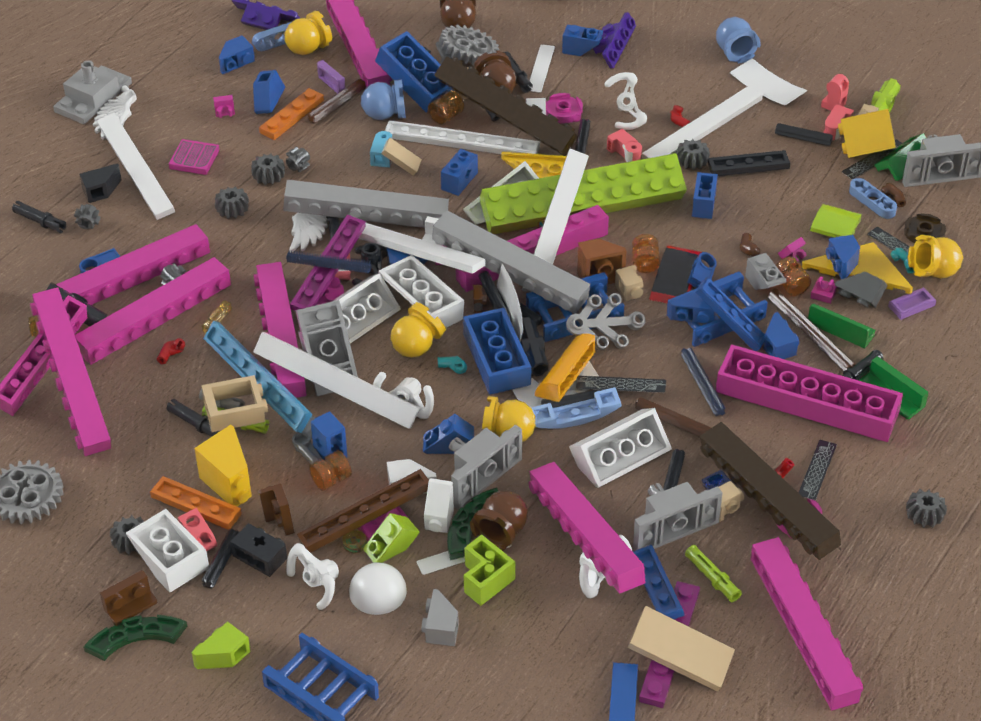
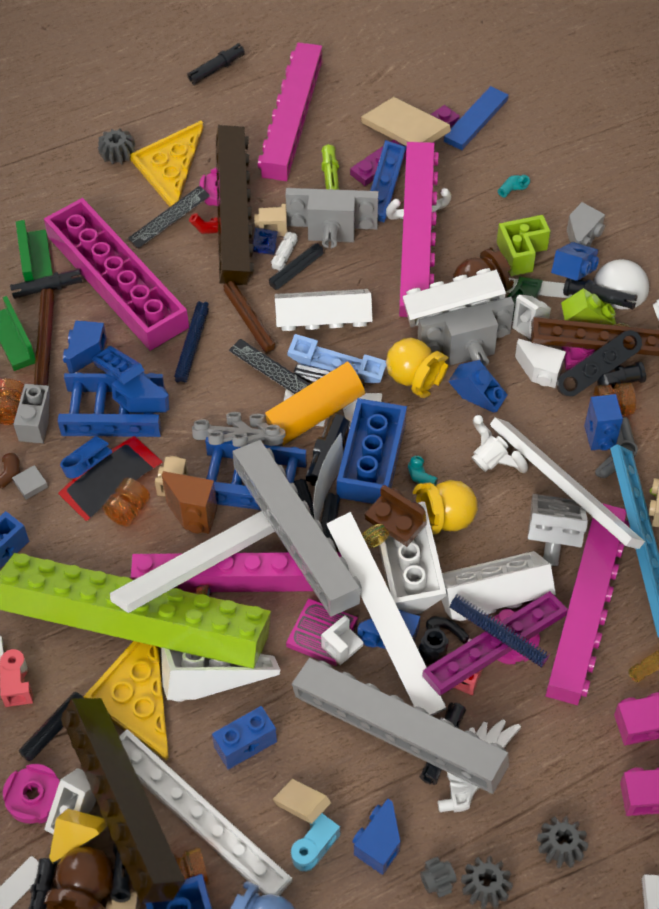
camera: 150 degrees left, 10 degrees up
(339, 490) = (624, 375): none -> black connector
(343, 163) = (380, 840): none -> blue slope
(357, 490) = (599, 363): none -> black plate
(360, 555) = (605, 294): none -> black pin
(432, 553) = (575, 261): none -> blue brick
(442, 295) = (398, 515): none -> reddish brown bracket
(449, 276) = (375, 535): none -> clear yellow tile
(504, 459) = (453, 296): none -> white slope
(520, 88) = (74, 830): none -> yellow slope
(534, 648) = (513, 183): none -> teal arm
(691, 476) = (284, 251): none -> white axle
(726, 246) = (30, 482): none -> light grey tile
(869, 521) = (169, 161): none -> yellow tile
(924, 650) = (223, 59): none -> black pin

